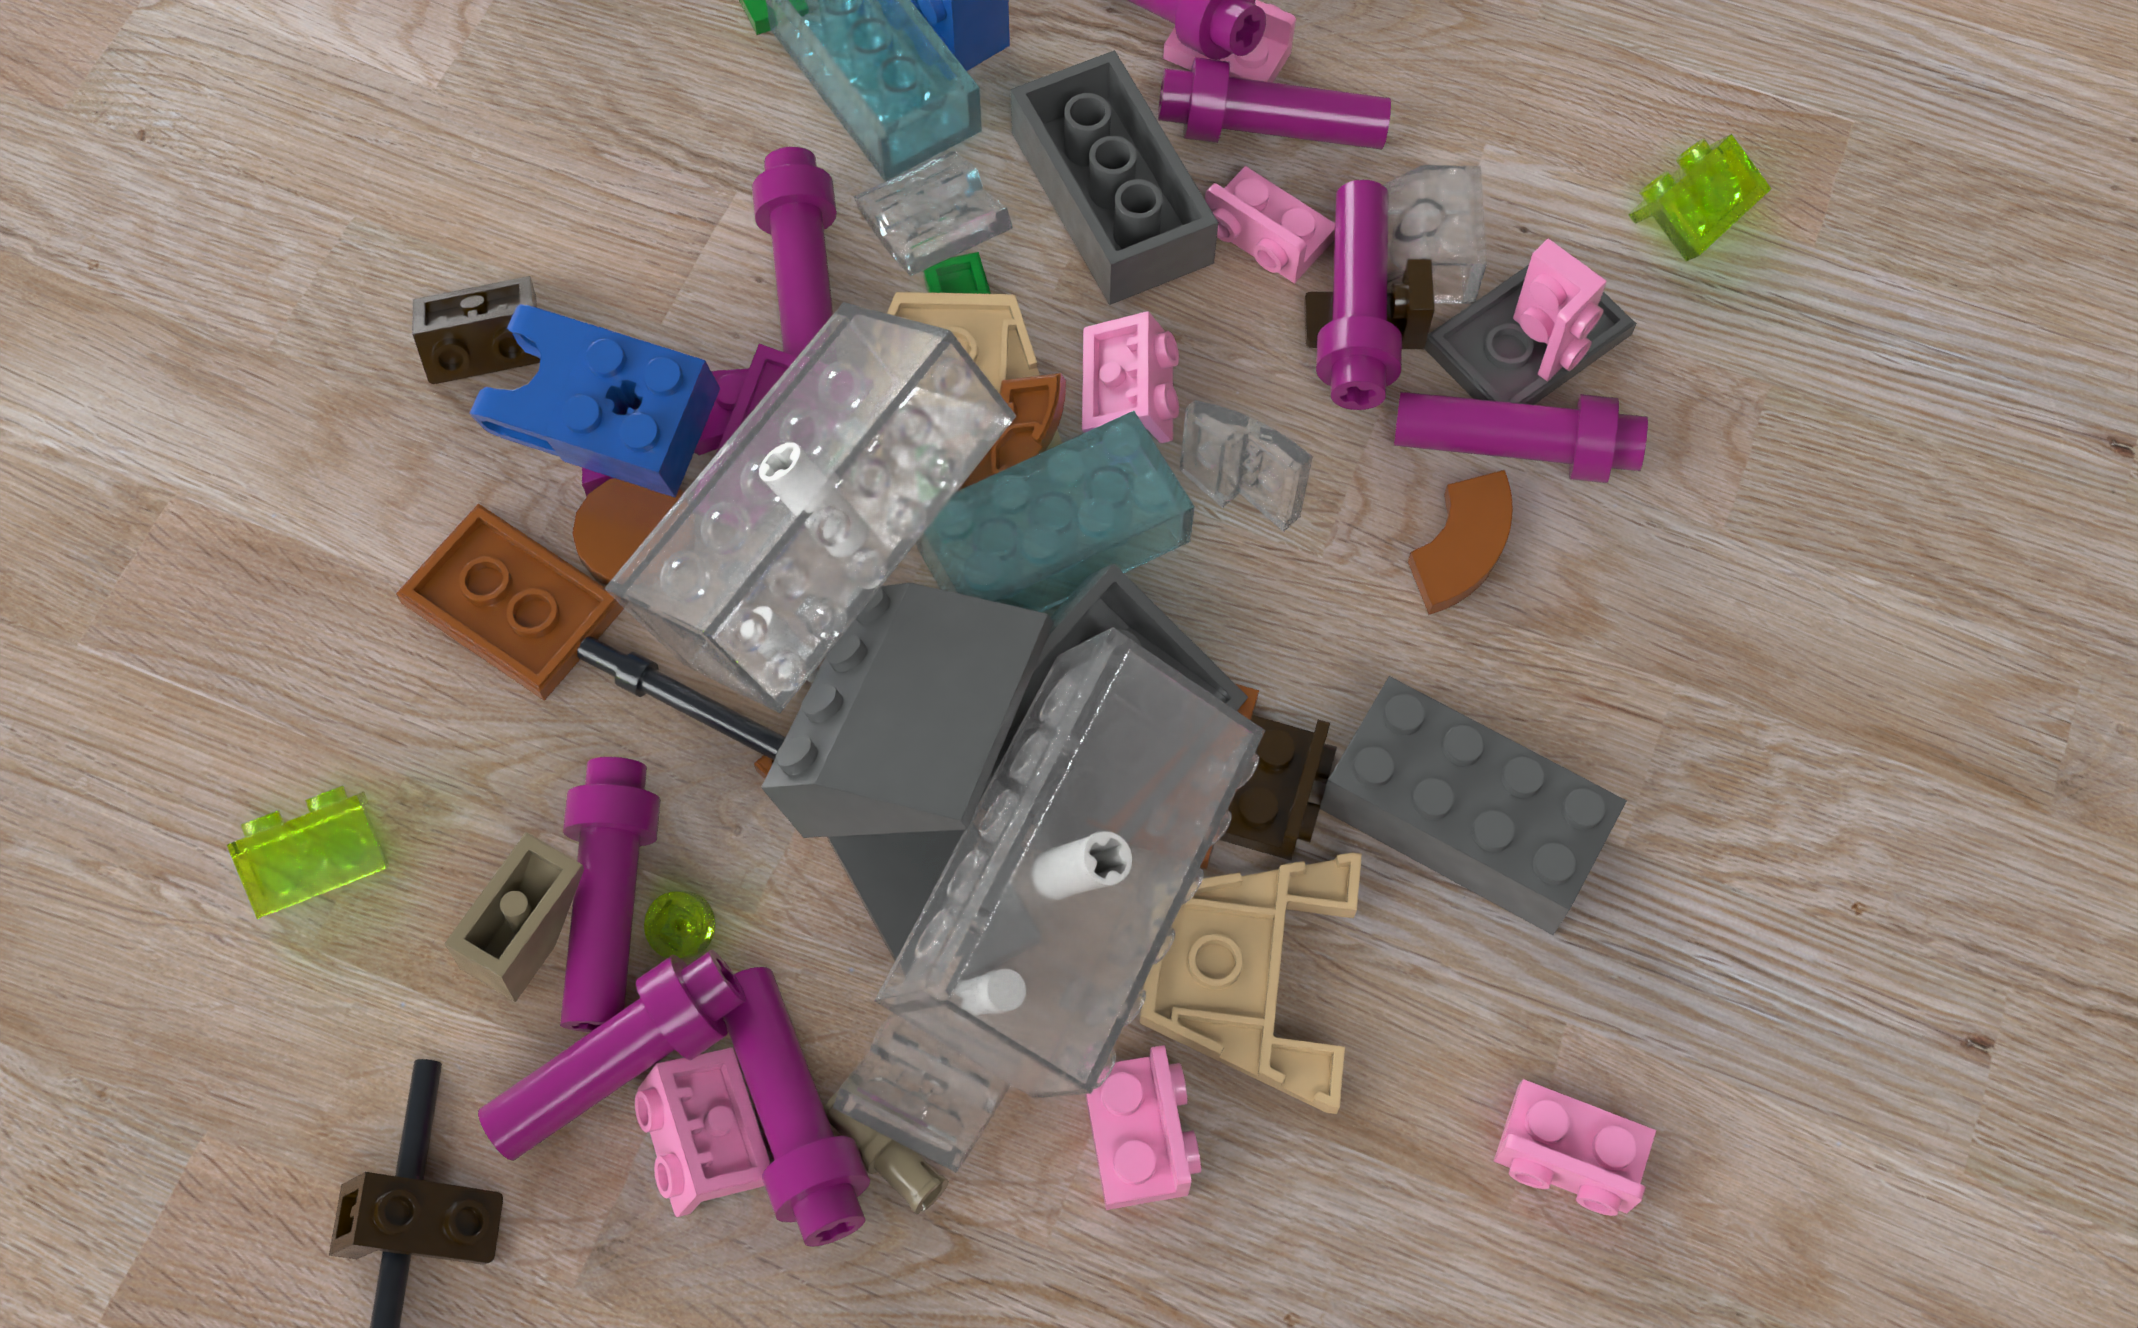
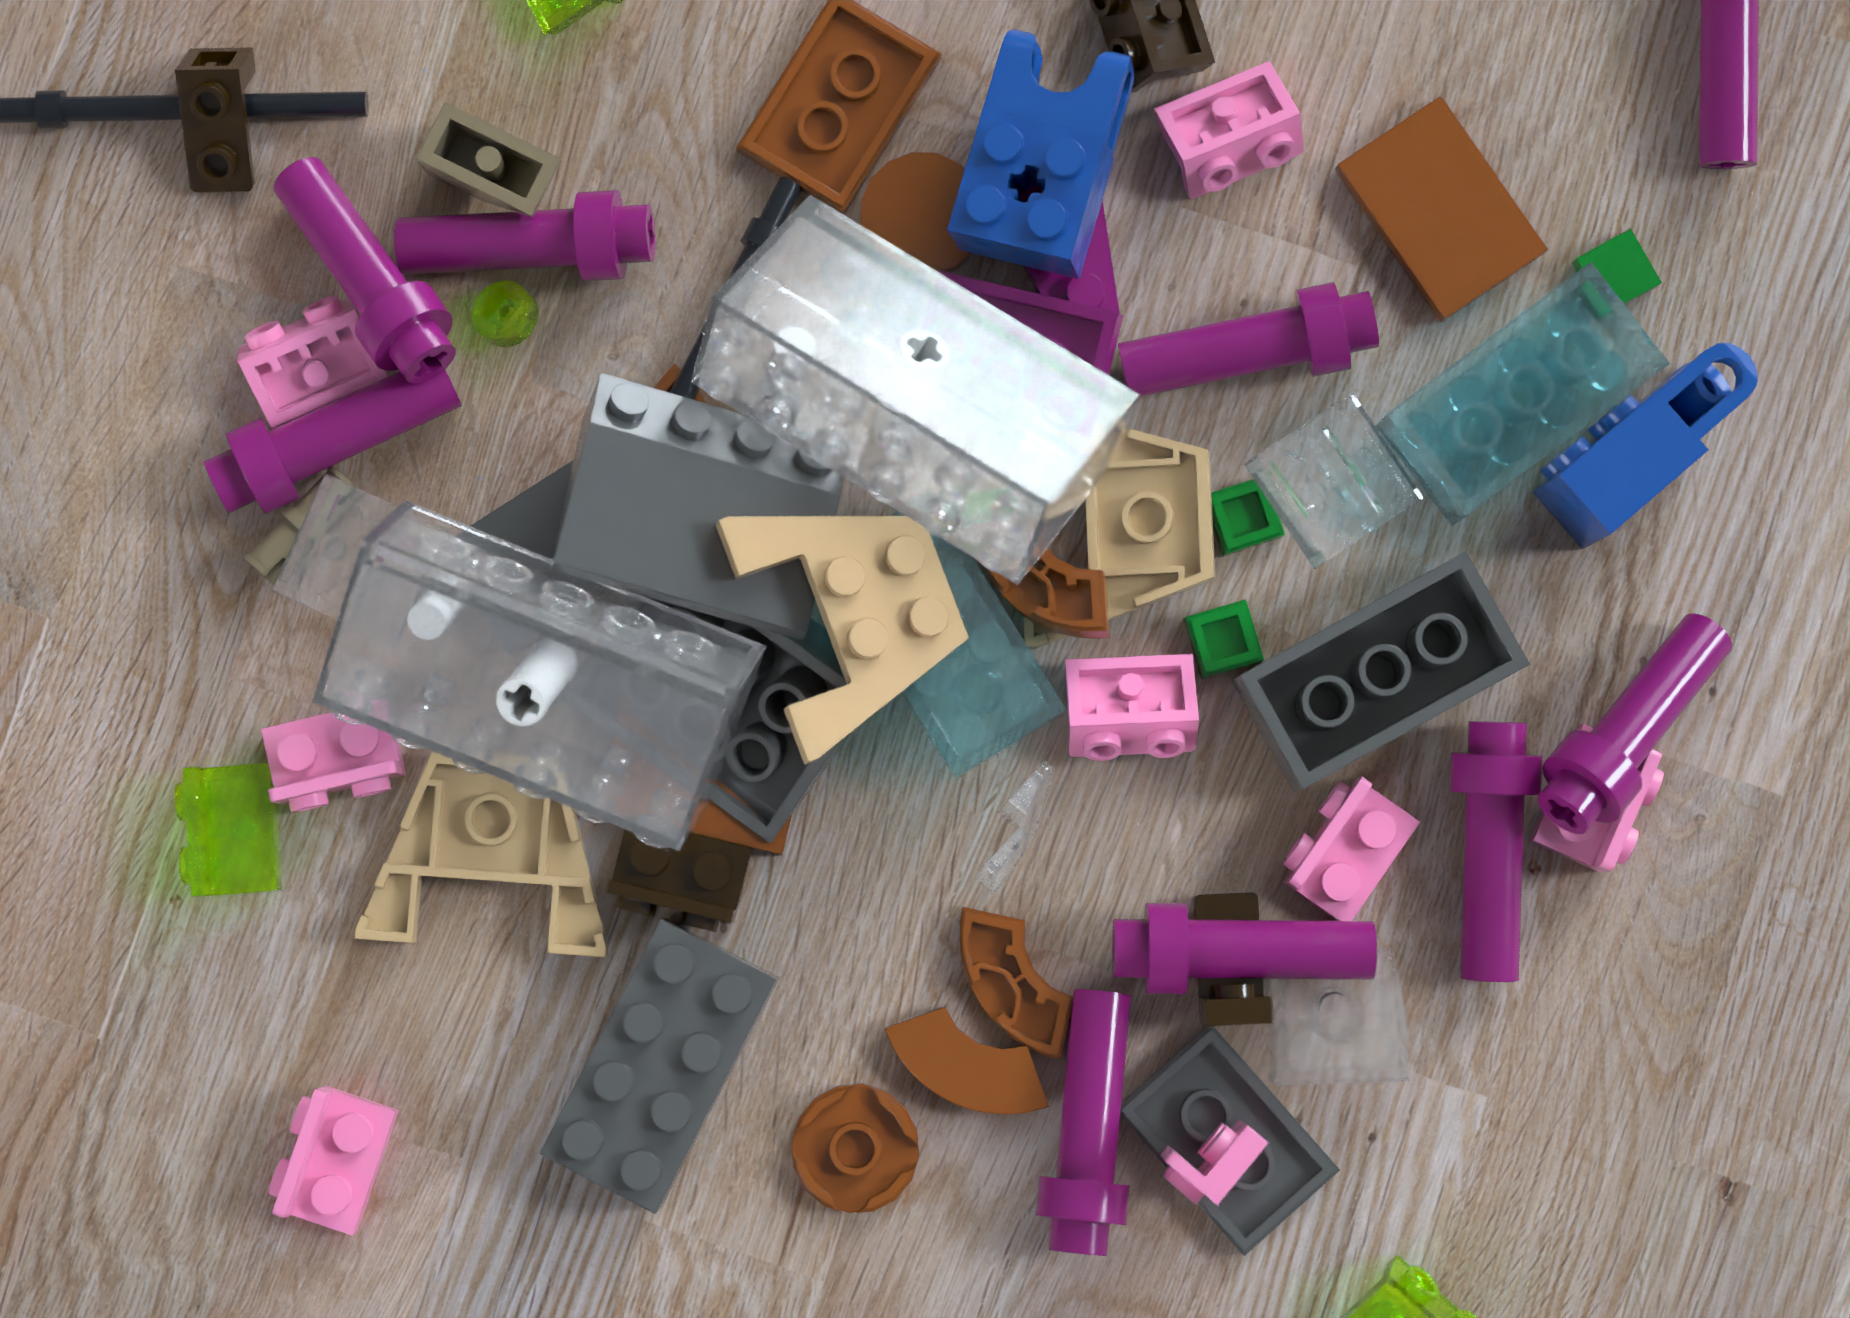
camera: 85 degrees right, 20 degrees up
(595, 265) = (1231, 129): none -> bright pink bracket
(695, 121) = (1441, 209): none -> dark orange tile
(1024, 545) = (877, 598): none -> tan wing
(1068, 308) = (1223, 639): none -> green tile
(1216, 1245) = (228, 830): none -> clear neon green bracket
(1386, 503) = (1009, 985): none -> dark orange tile
(1546, 644) = (855, 1148): none -> dark orange tile

